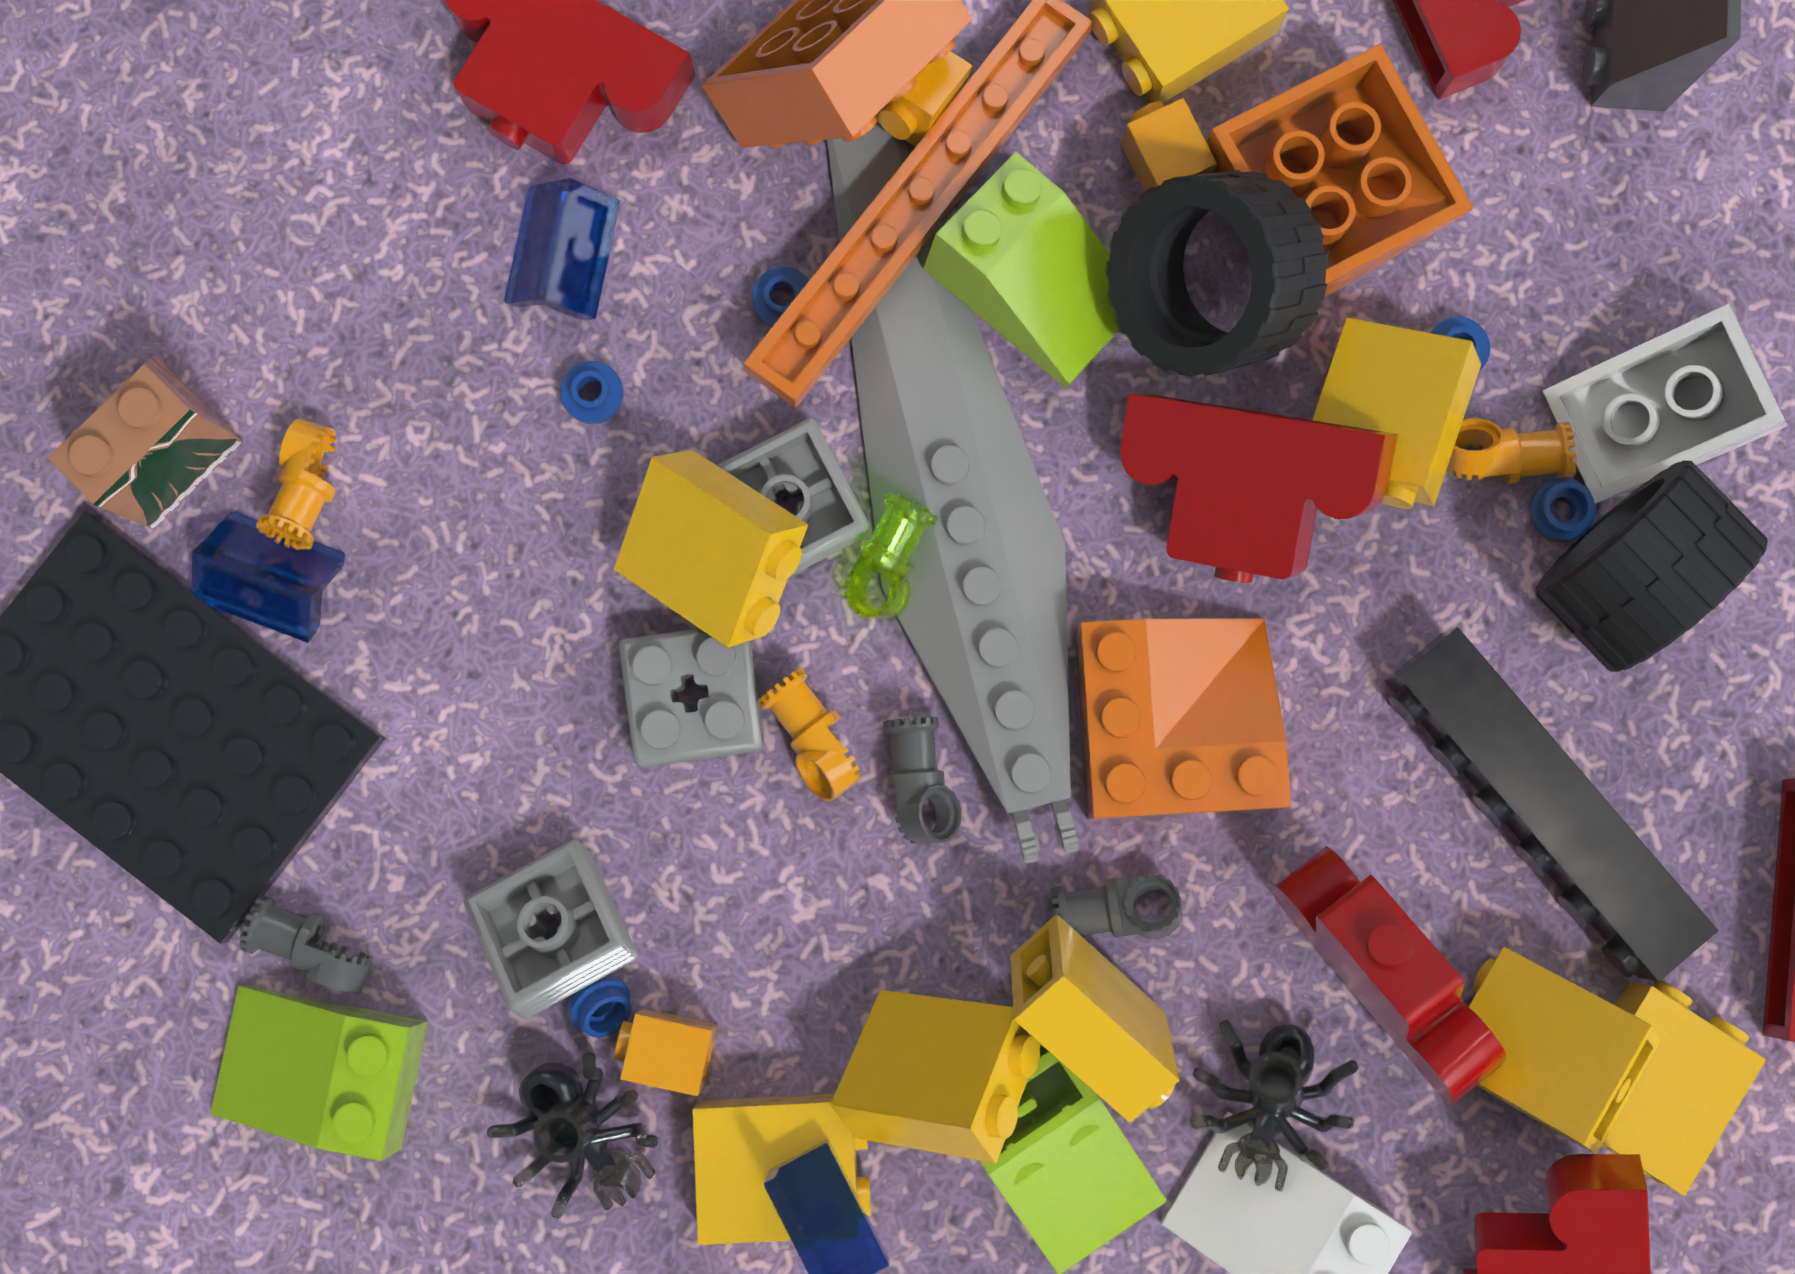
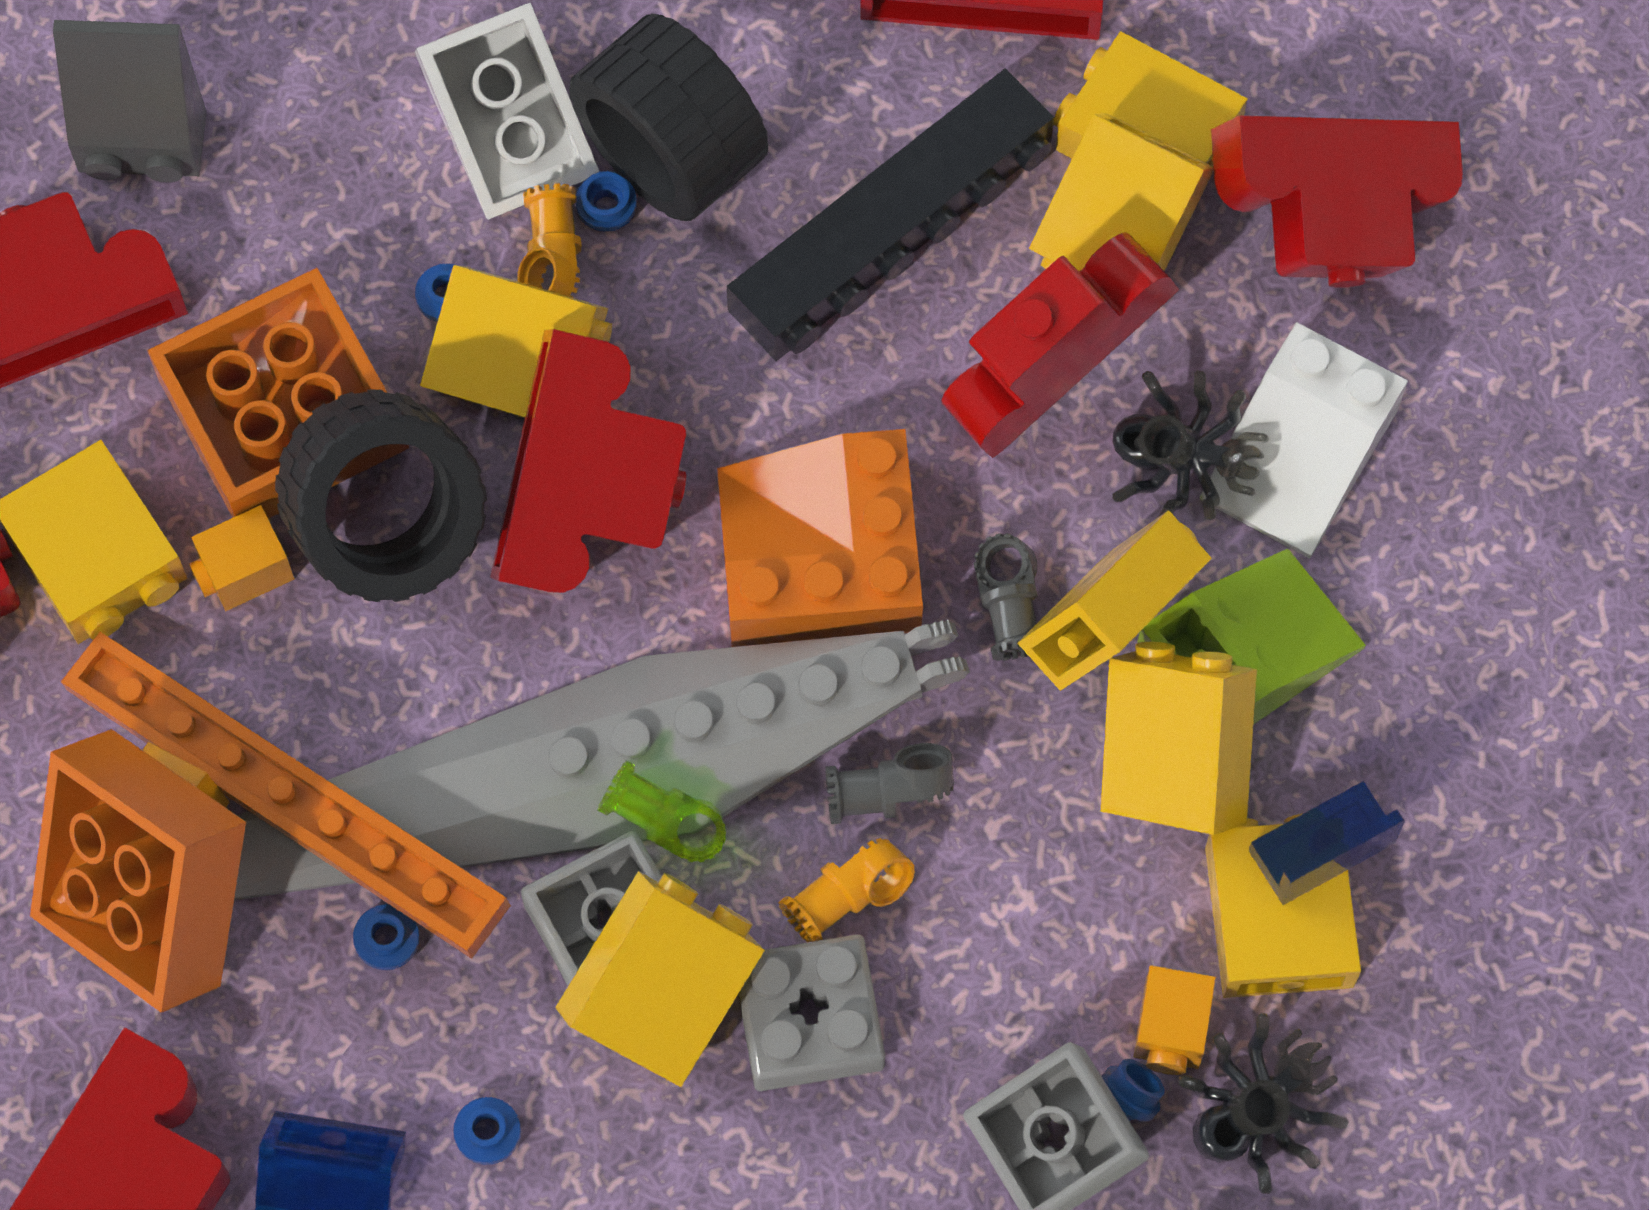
camera: 95 degrees left, 15 degrees down
(1029, 269) = (363, 685): lime slope -> none

